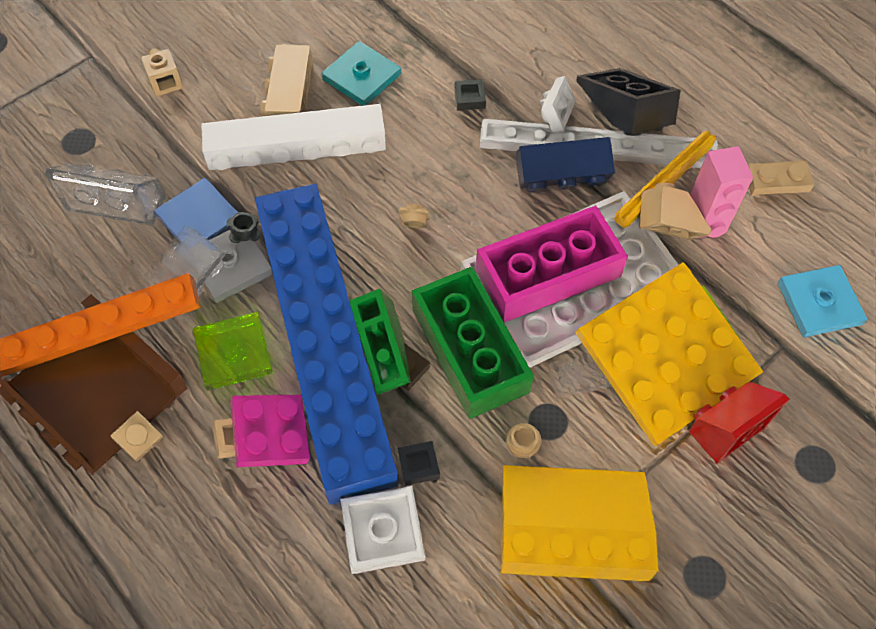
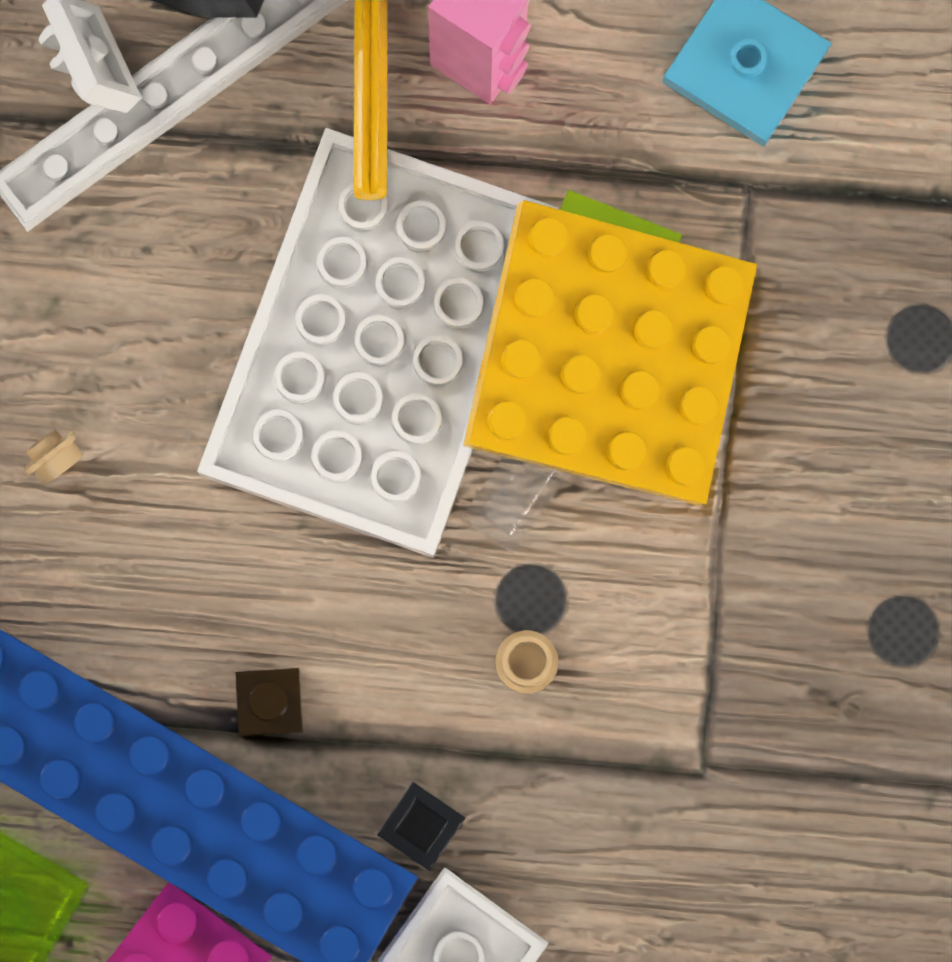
camera: 45 degrees left, 20 degrees up
(381, 340) = (212, 707): green slope -> none
(471, 342) = (330, 590): green brick -> none
(550, 263) = (339, 373): dark pink brick -> none
(565, 164) = (198, 160): dark blue brick -> none
(577, 524) = (690, 711): yellow slope -> none
(672, 213) = (433, 120): tan slope -> none
(736, 418) = (778, 378): red slope -> none

